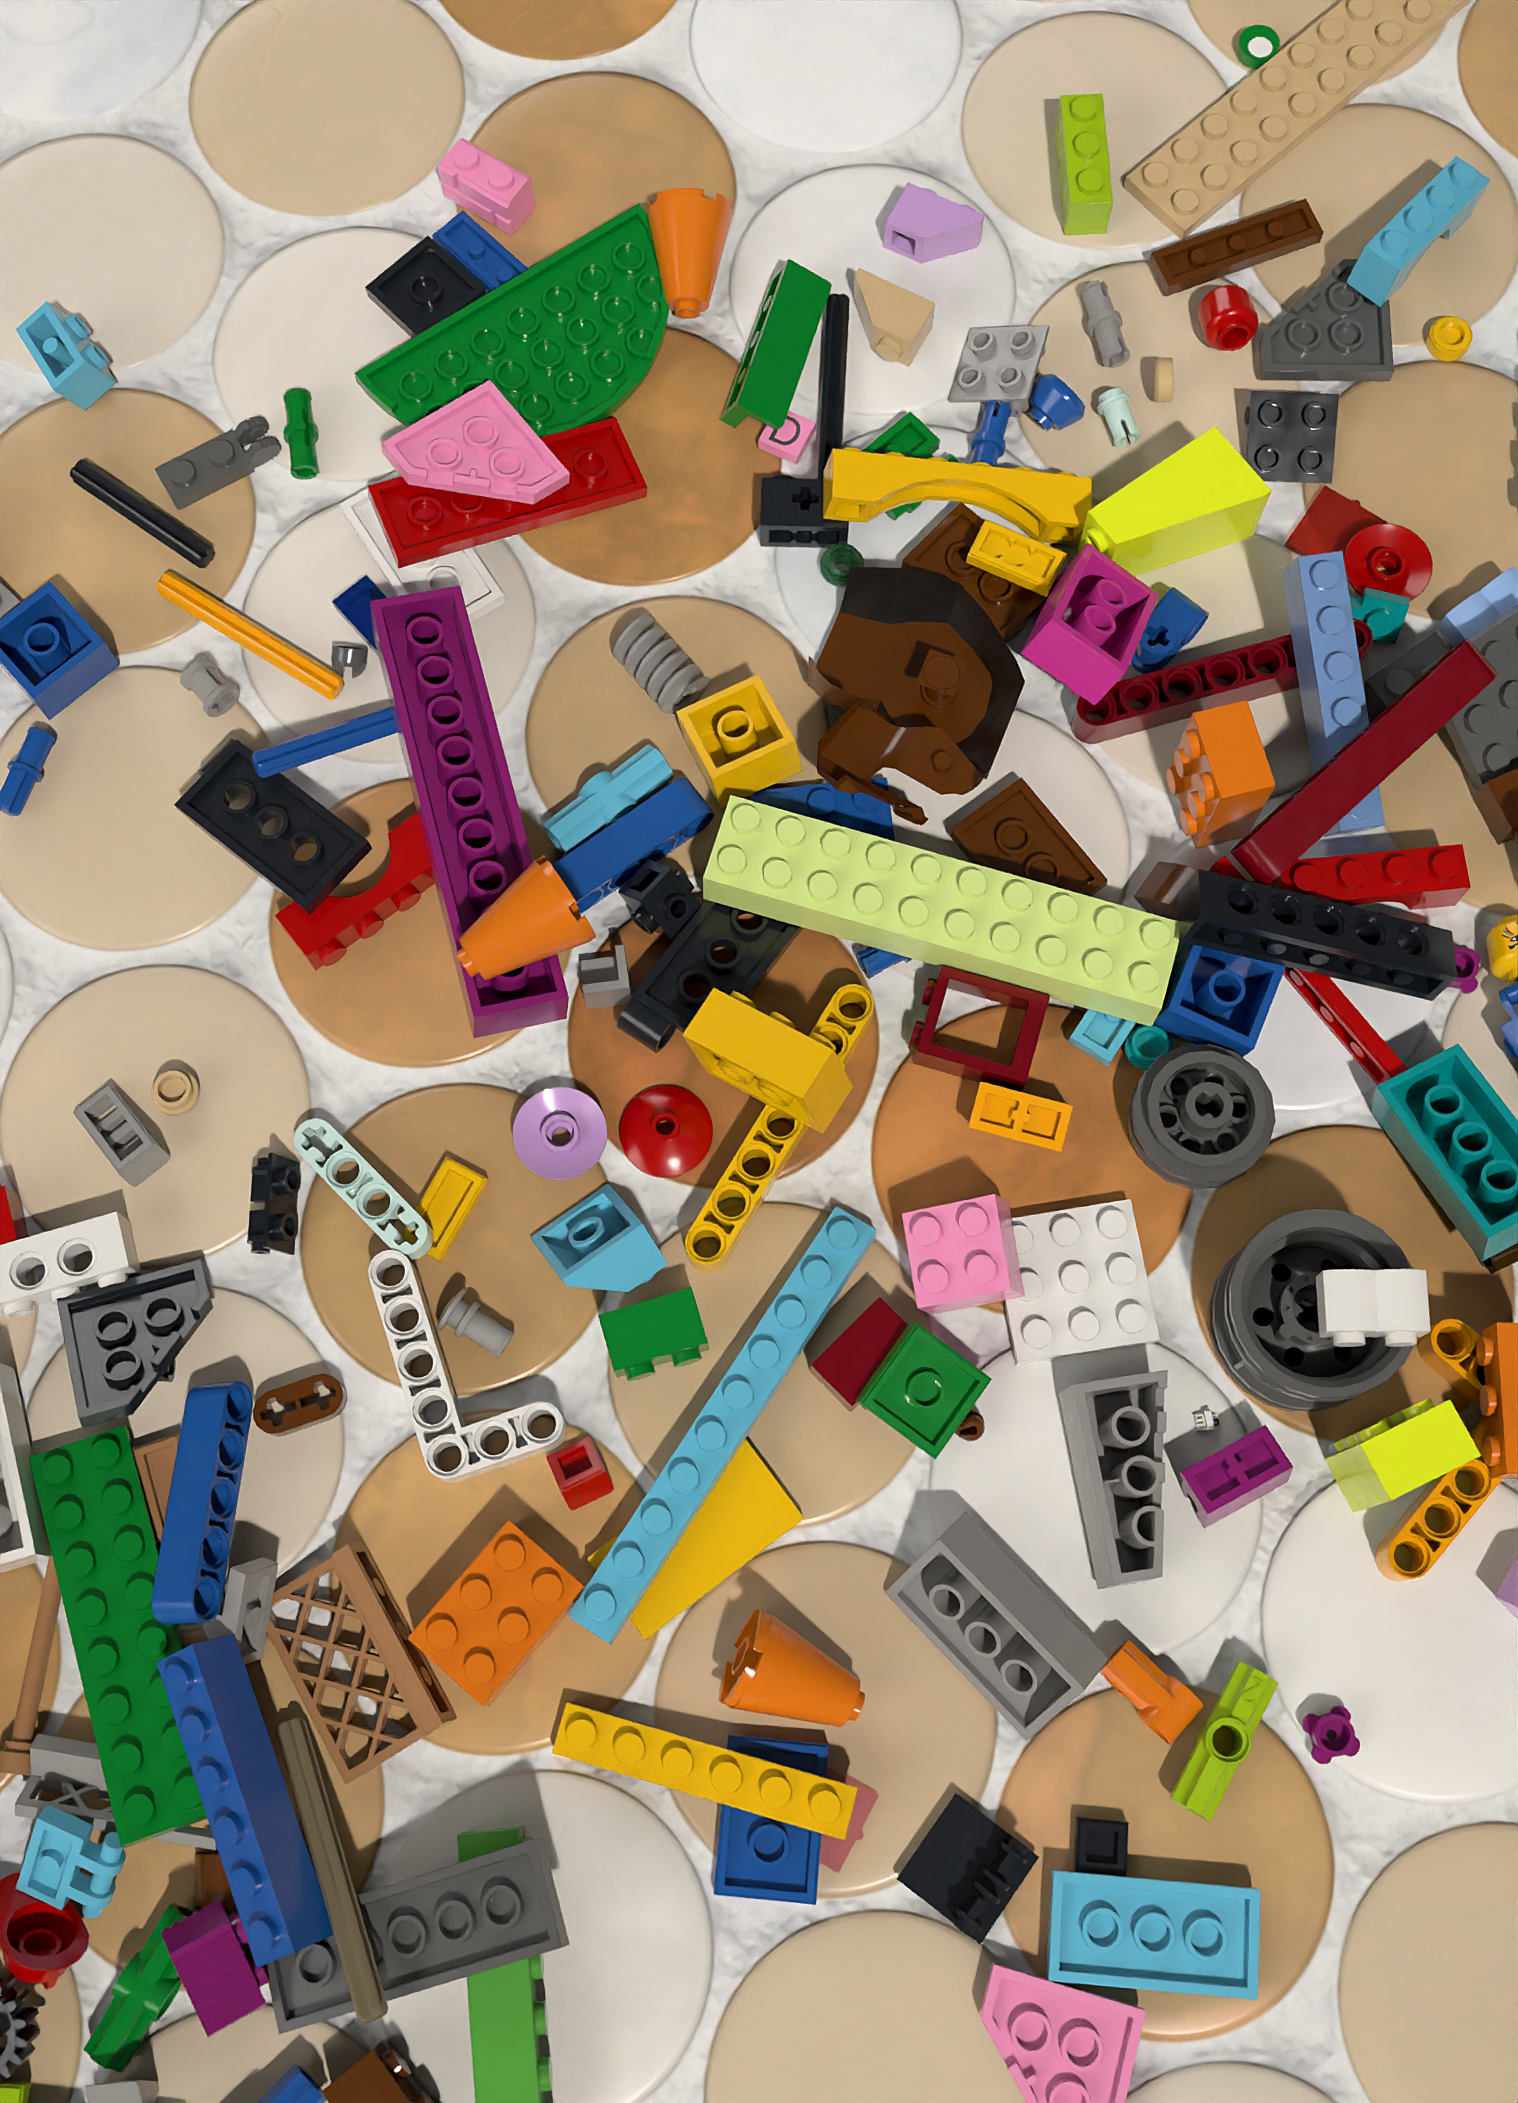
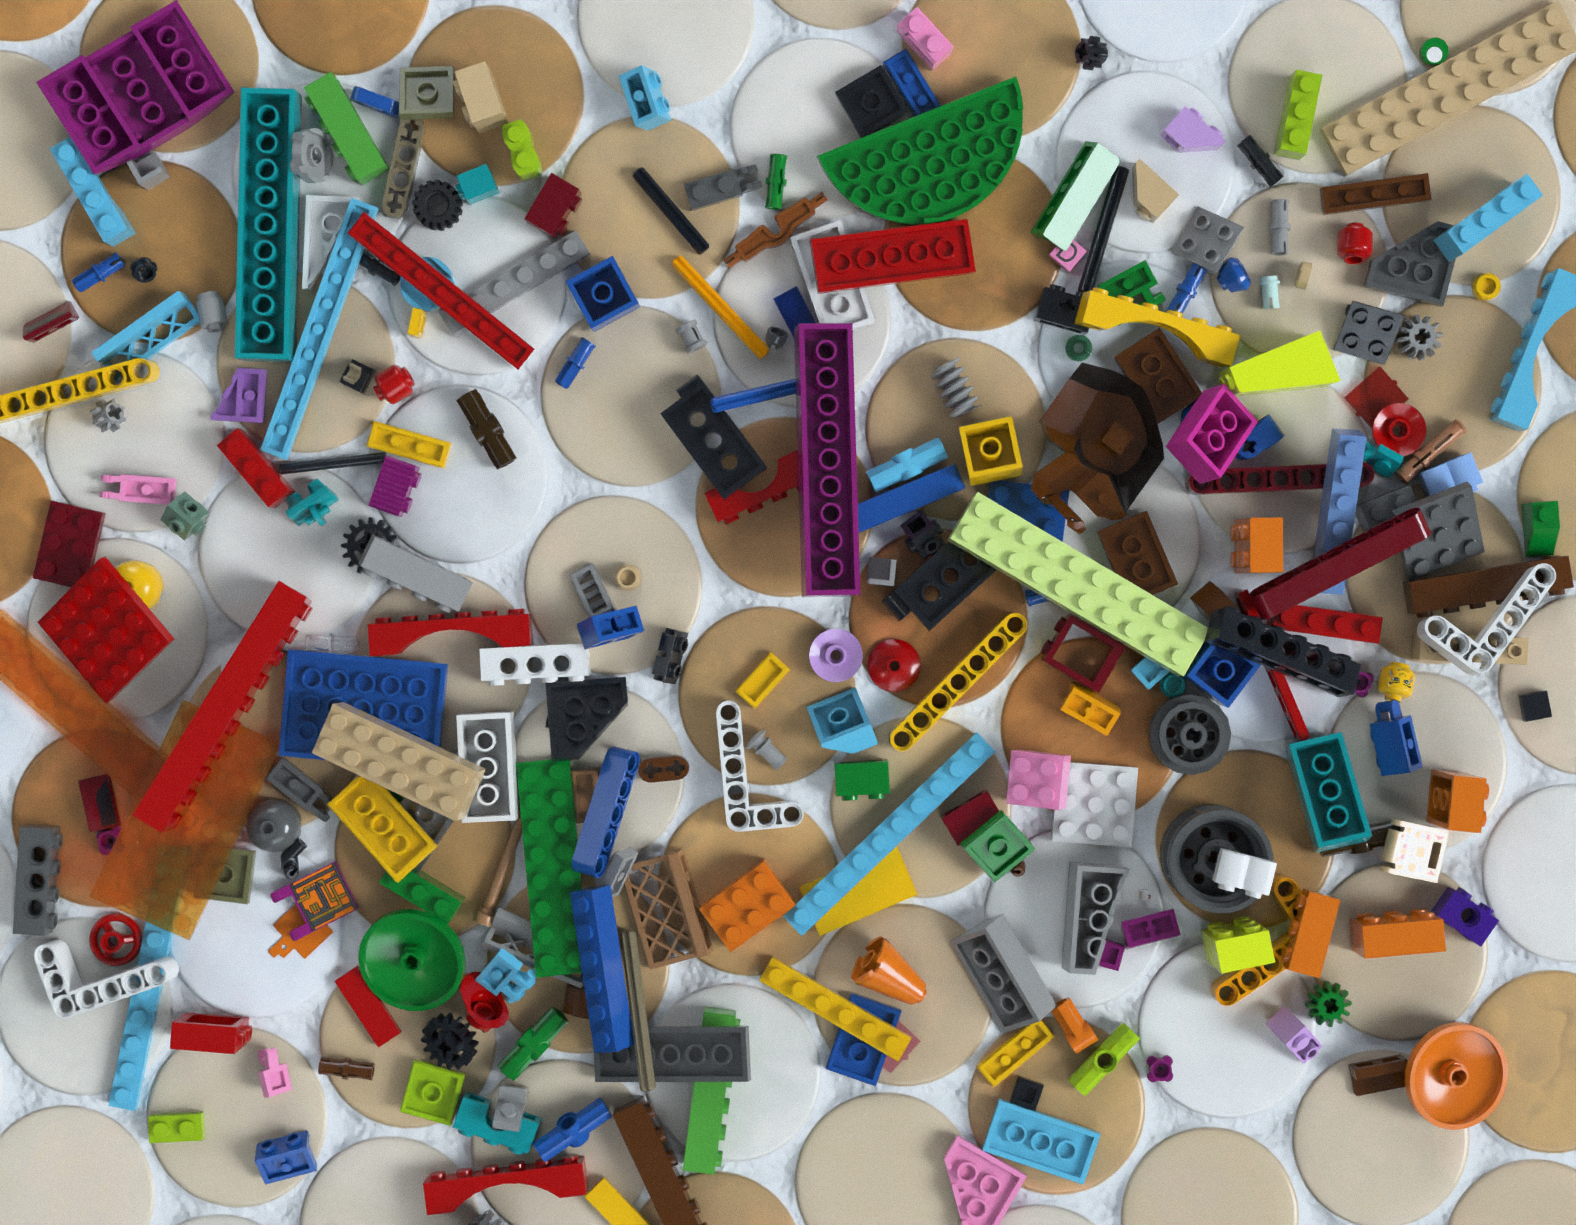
camera: 10 degrees right, 15 degrees up
(152, 1173) = (610, 627): none -> blue brick
(214, 1967) = (571, 1044): magenta brick -> none
(299, 522) = (763, 238): none -> dark orange piece
(363, 1188) = (720, 660): light aqua beam -> none
(477, 449) = (881, 231): bright pink plate -> none
(525, 925) = (846, 553): orange cone -> none
(580, 1473) = (804, 840): red slope -> none
(689, 246) = (1038, 118): orange cone -> none
(746, 150) = (1091, 53): none -> black gear
(769, 1058) = (961, 652): yellow brick -> none
(967, 1868) = (956, 1087): black hinge -> none
(1016, 558) = (1181, 376): yellow plate -> none
(1046, 241) = (1260, 160): none -> black pin
(1057, 1770) = (1014, 1052): none -> yellow tile
(1182, 1544) = (1112, 955): none -> magenta tile
(1372, 426) = (1420, 327): none -> light grey gear
(1471, 552) = (1407, 471): none -> nougat pin

